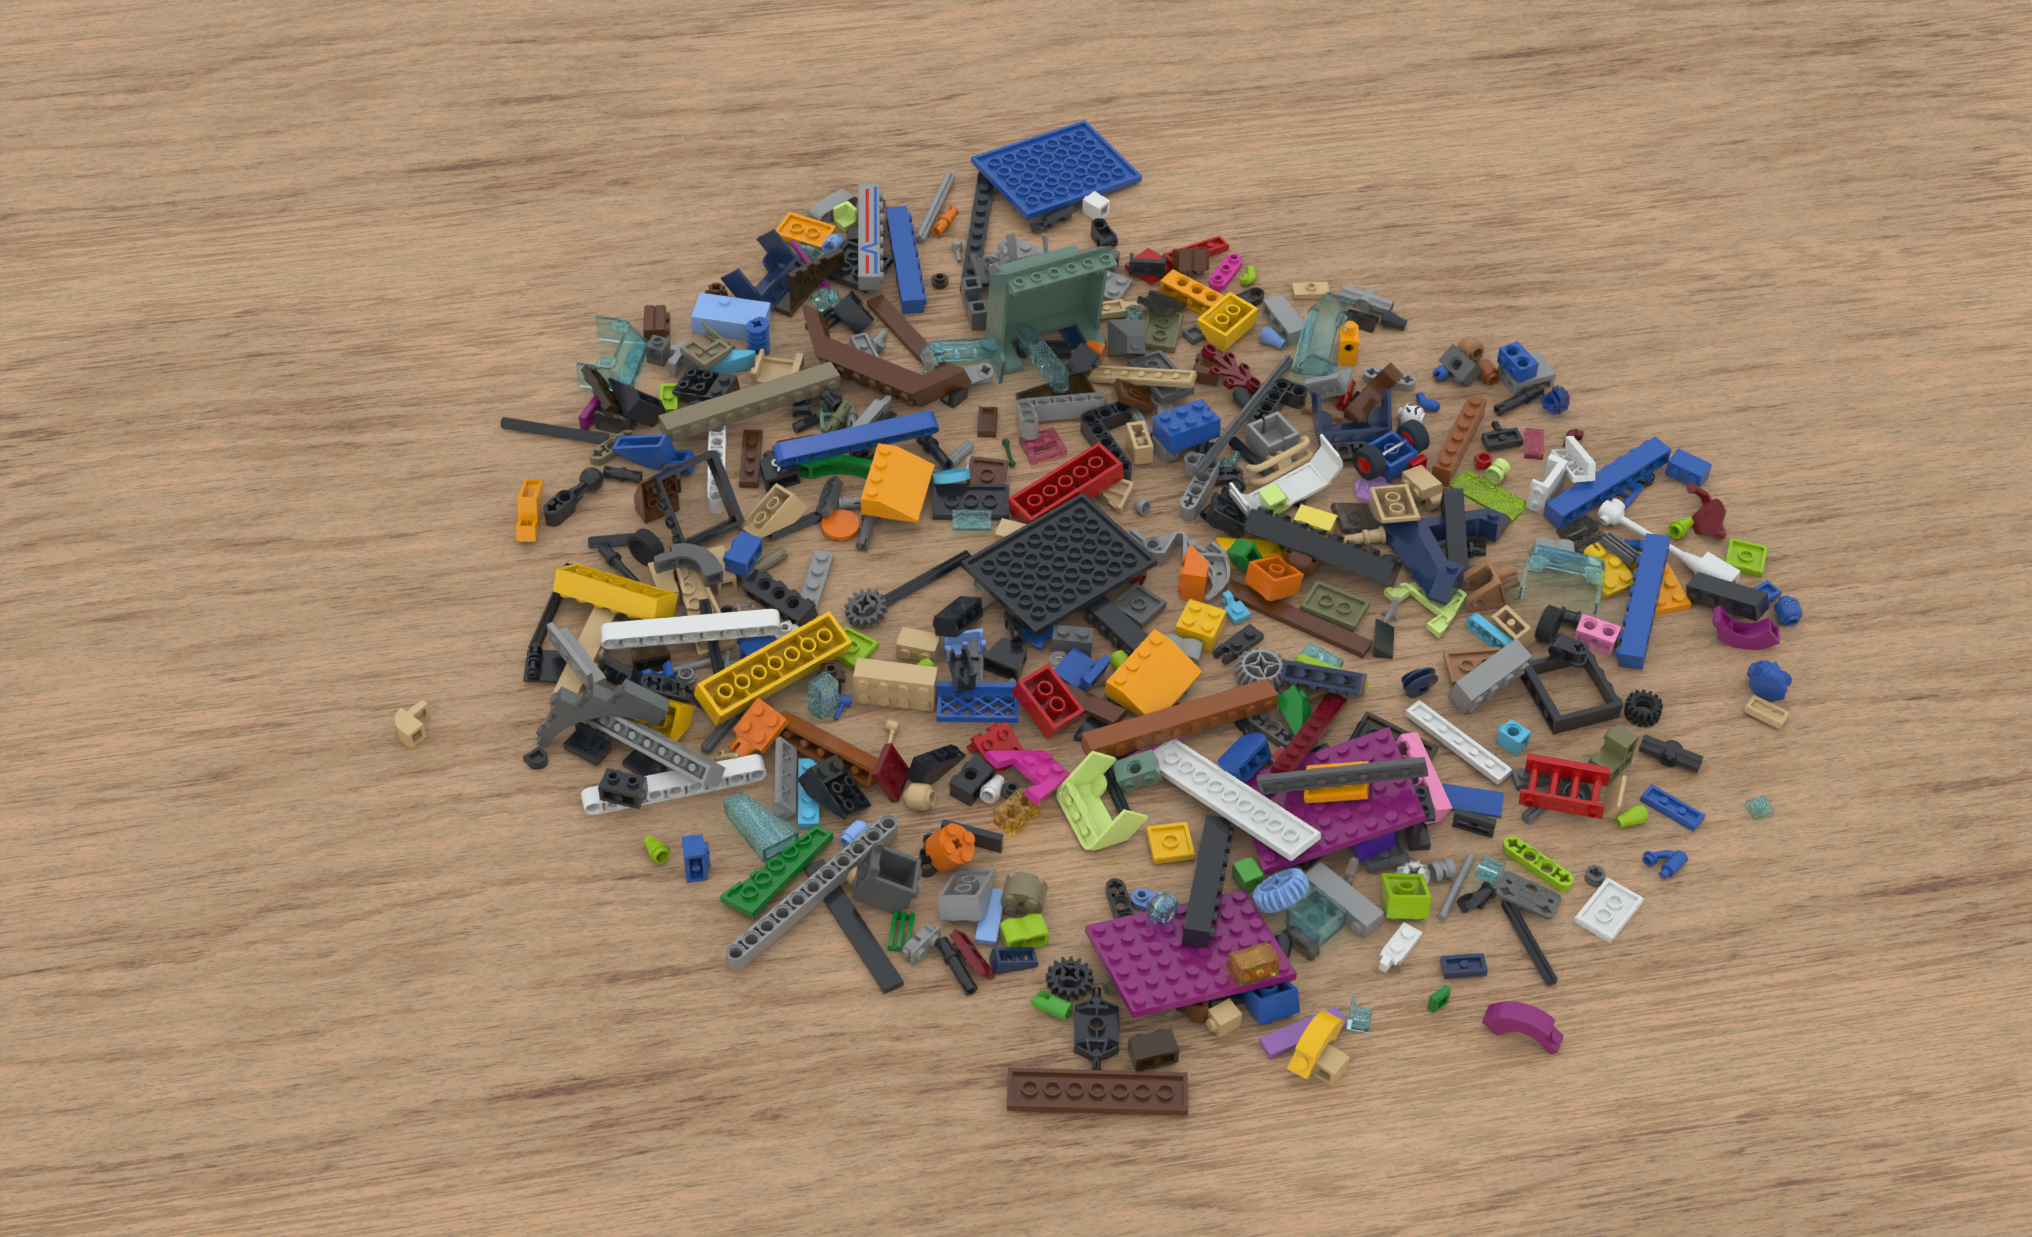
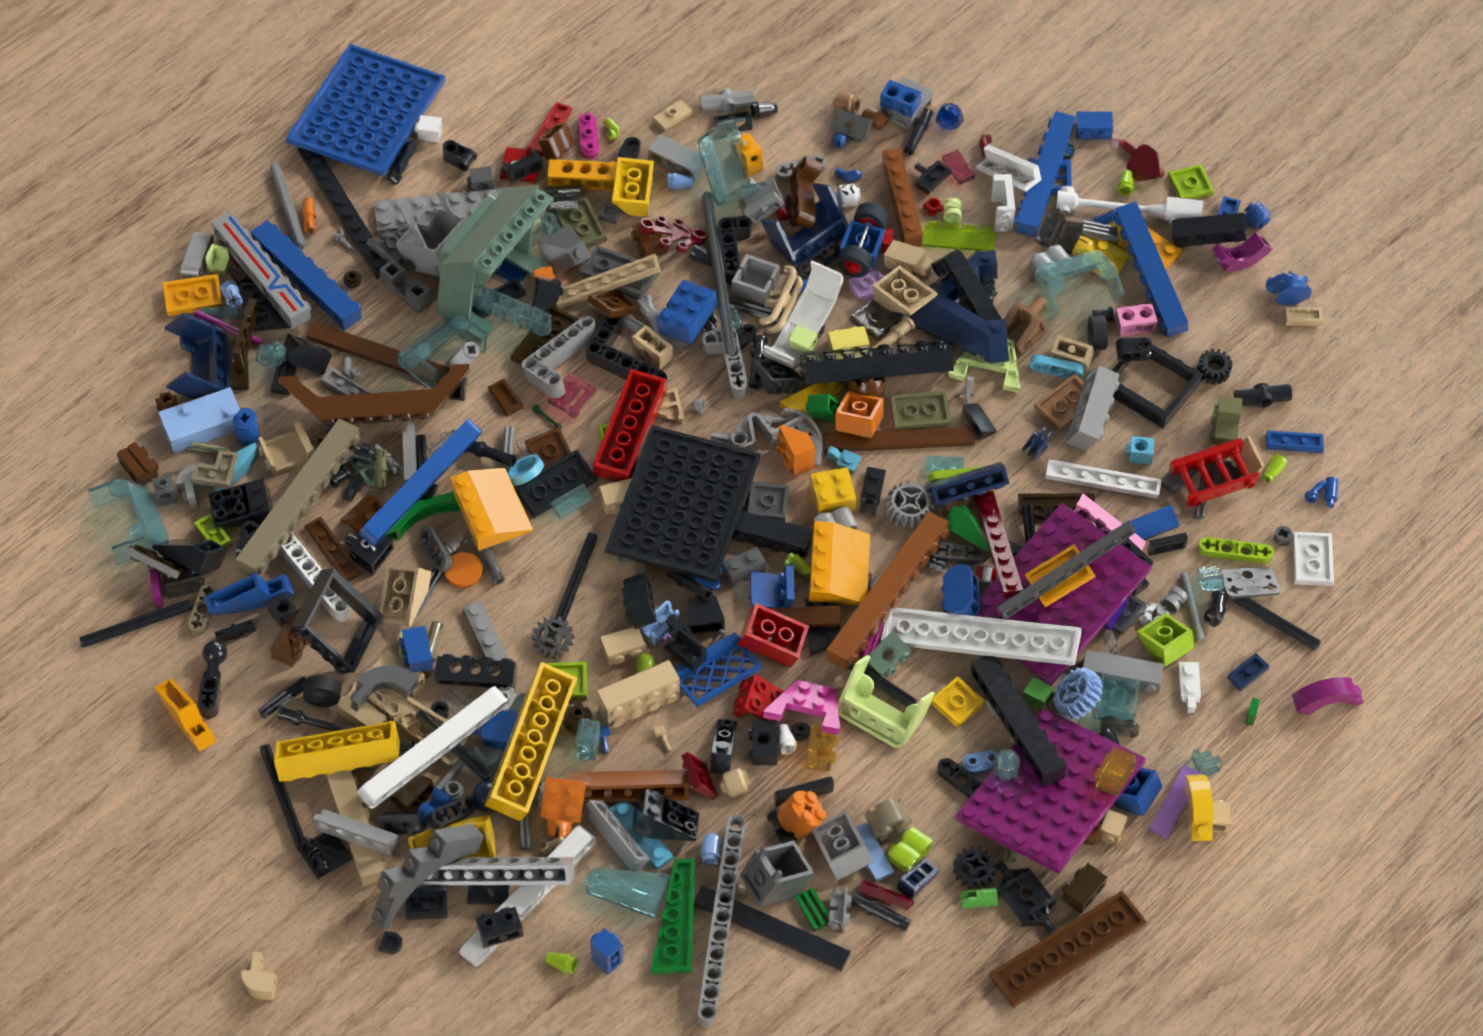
camera: 35 degrees left, 10 degrees up
(1759, 807) = (1355, 404): clear light blue plate -> none

